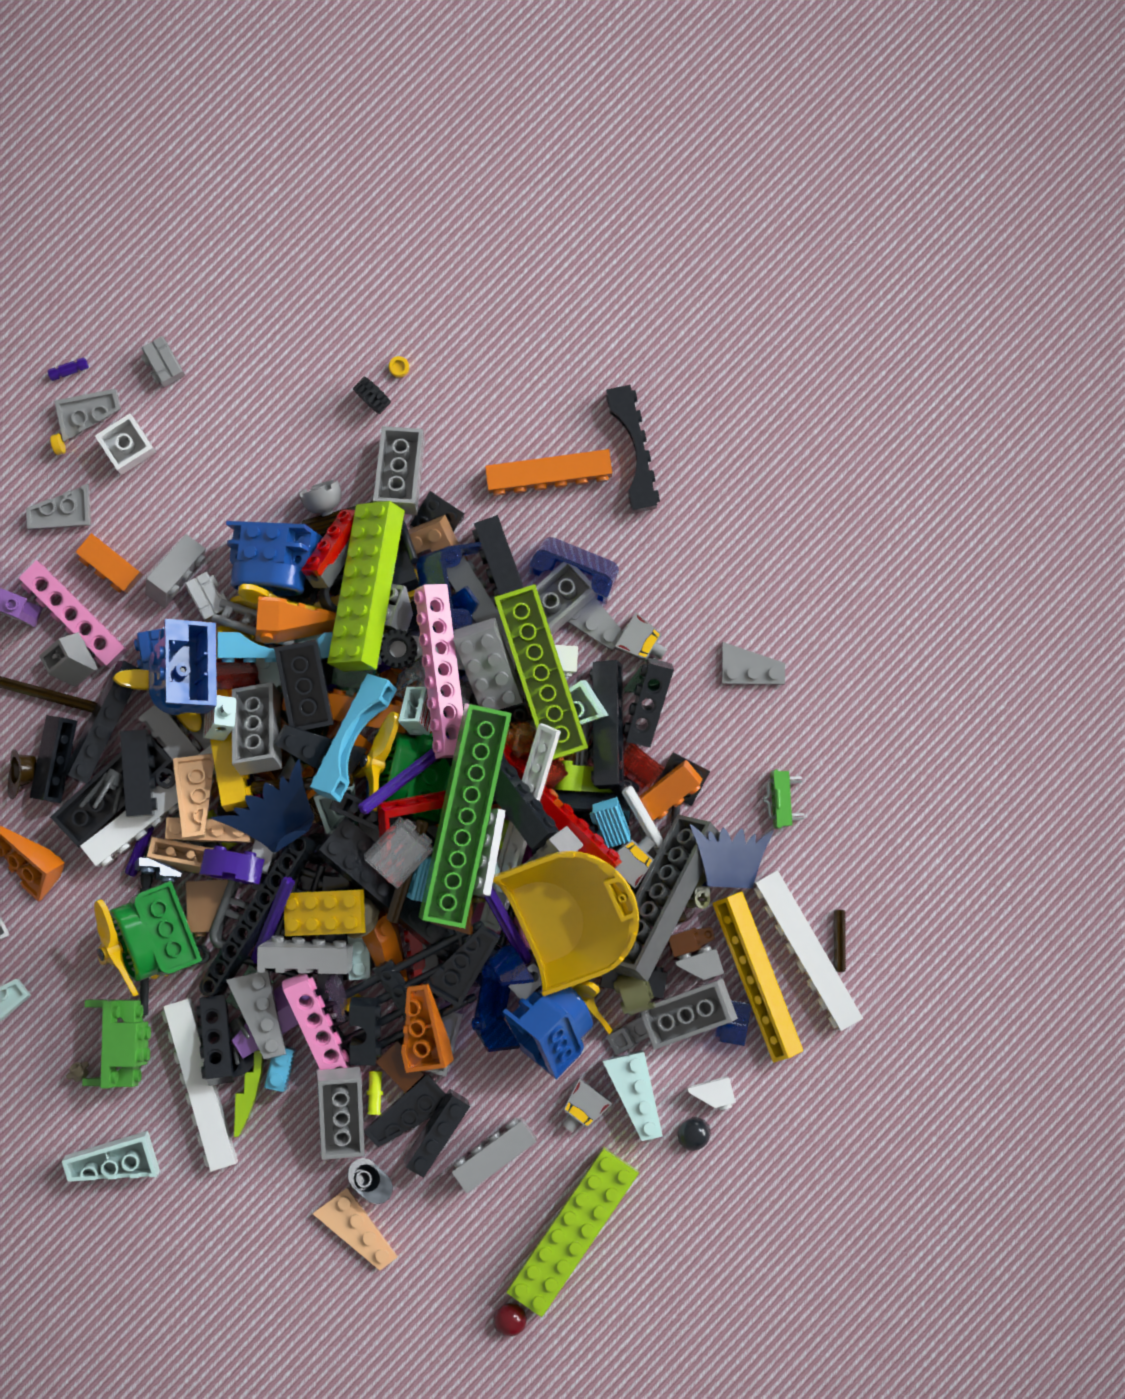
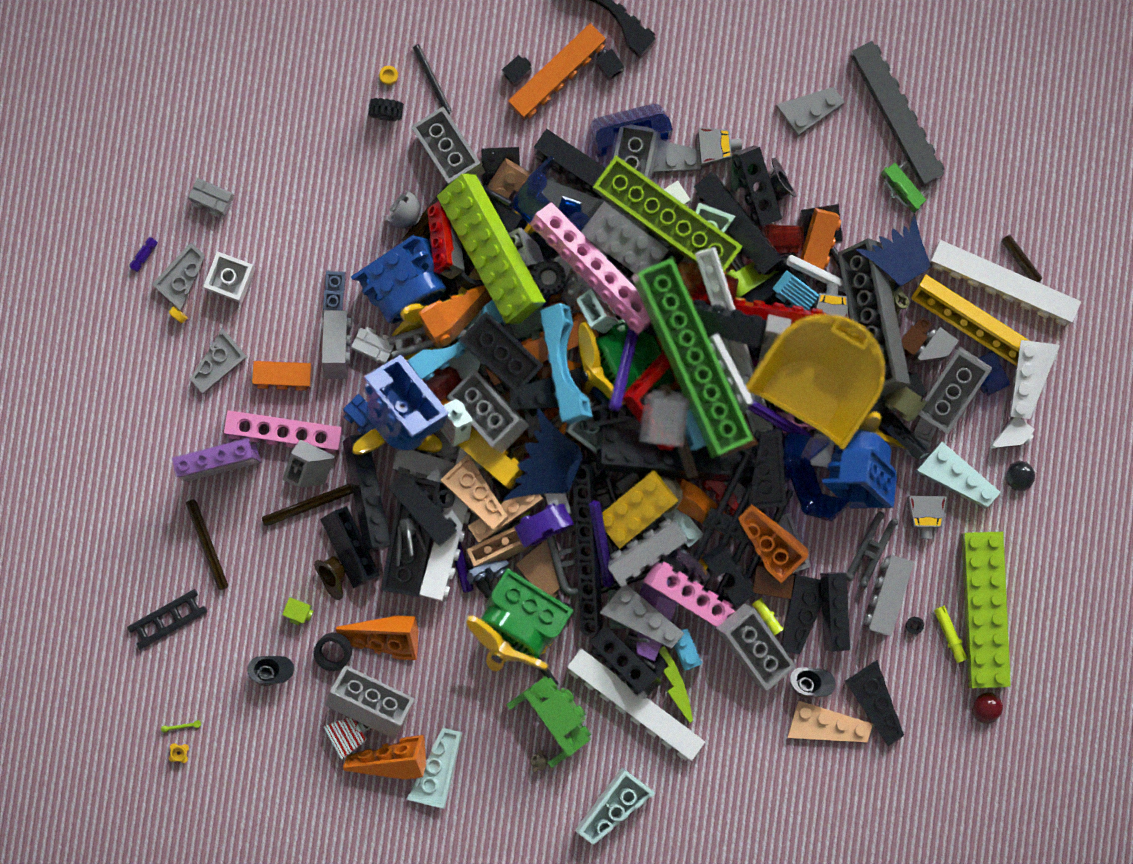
camera: 35 degrees left, 0 degrees up
(211, 521) = (334, 290): none -> sand blue slope
(415, 1235) = (872, 694): none -> black wing
(434, 397) = (431, 77): none -> black bar
(505, 1193) = (913, 631): none -> black bush
(510, 1101) = (871, 549): none -> dark grey piece
(514, 444) = (517, 70): none -> black brick
(523, 1239) = (952, 638): none -> neon yellow pin
(600, 498) = (609, 64): none -> black brick
(613, 1020) = (902, 434): none -> black wing
(673, 713) = (780, 182): none -> black piece
(769, 1050) = (1031, 373): none -> white wing
(824, 727) = (897, 113): none -> dark grey brick

